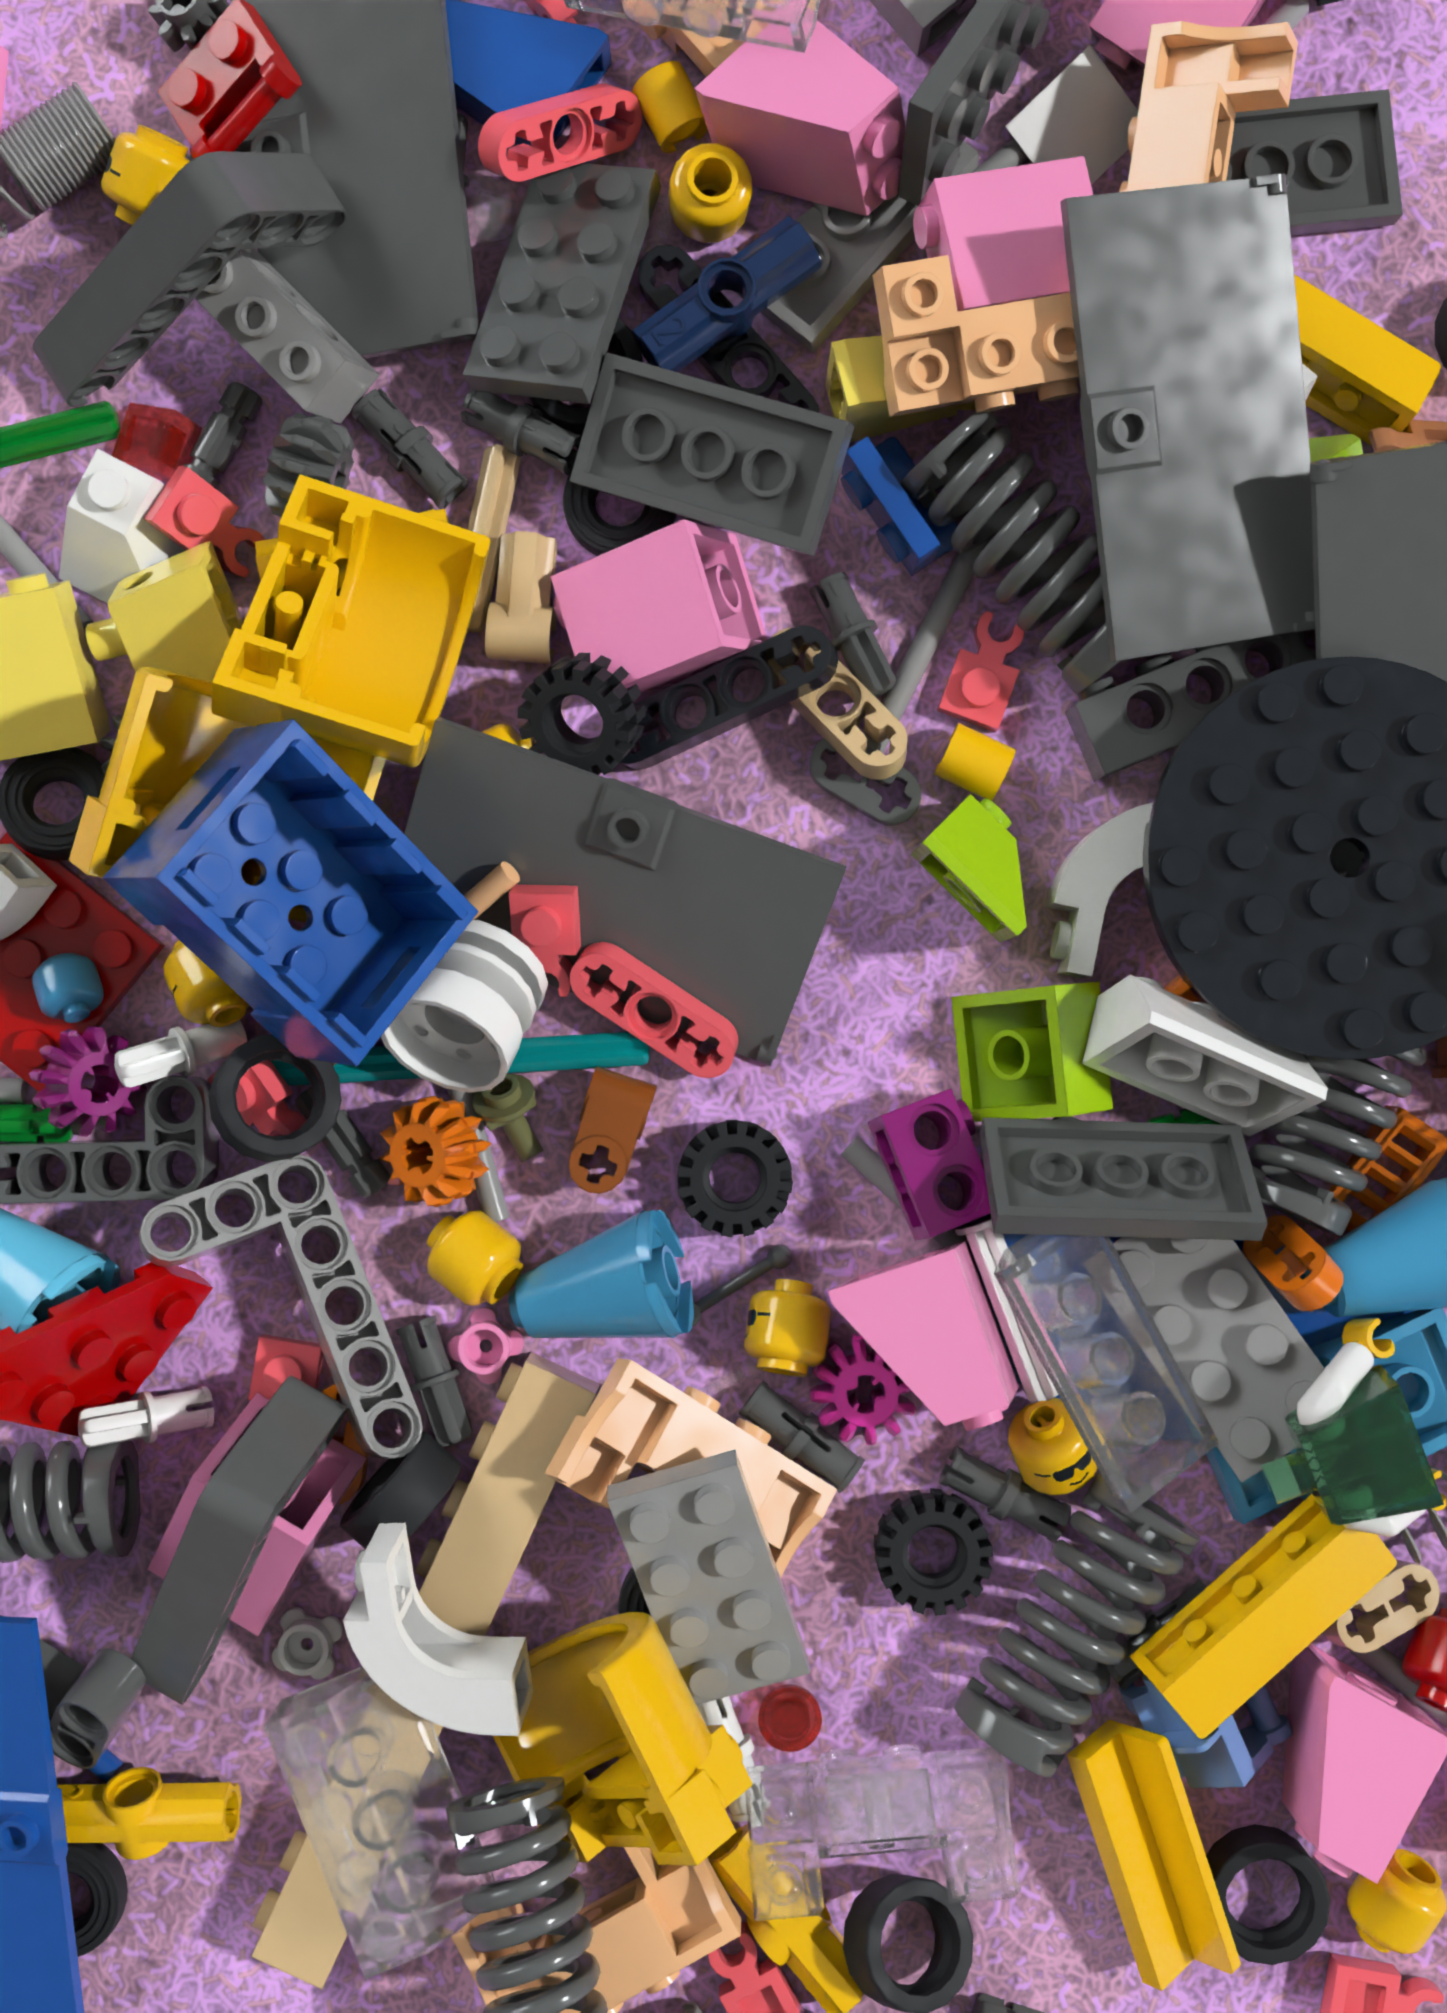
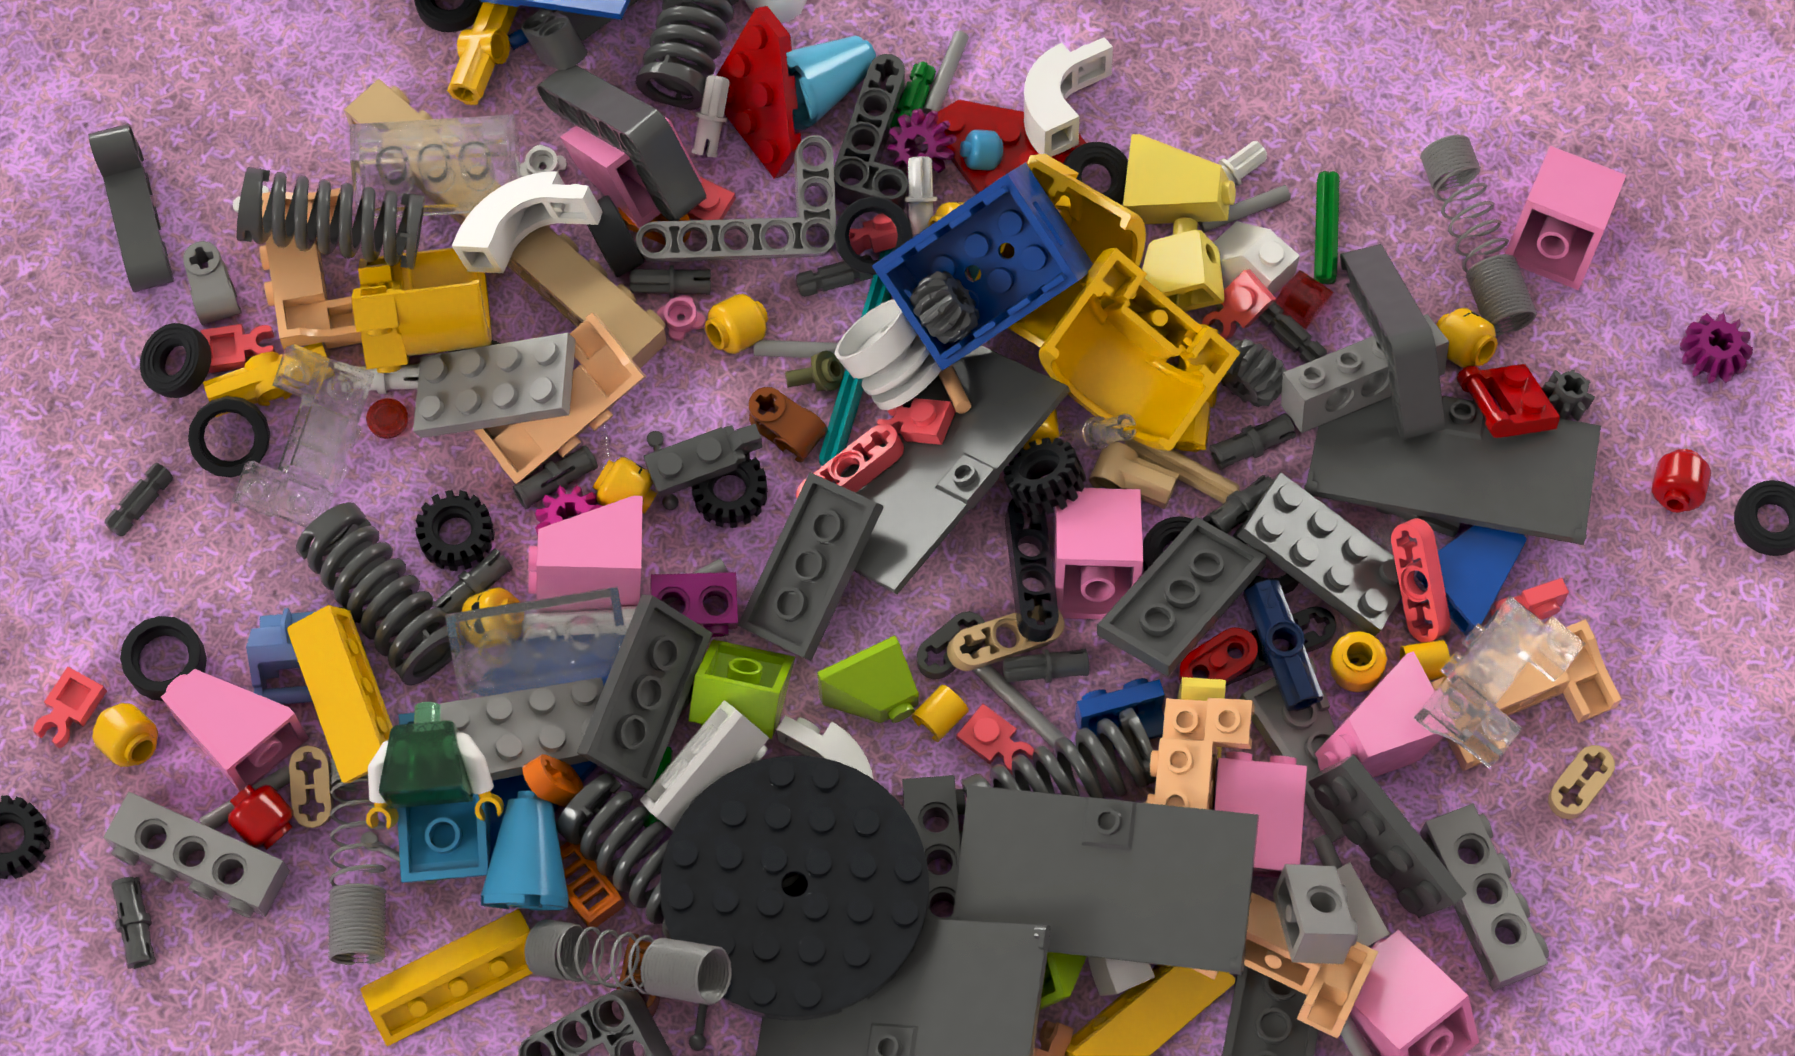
camera: 110 degrees right, 20 degrees down
(379, 936) = (944, 307): none -> dark grey gear
(434, 1151) = (809, 319): orange gear -> none
(482, 663) = (1099, 432): none -> clear pin
(609, 1286) = (689, 392): dark azure cone -> none
(717, 1233) = (701, 458): none -> dark grey hinge
(785, 376) = (1214, 659): none -> red plate
(830, 1011) = (810, 566): none -> dark grey plate
(1151, 1852) = (222, 588): yellow panel -> none
(1181, 111) = (1314, 914): none -> light grey brick

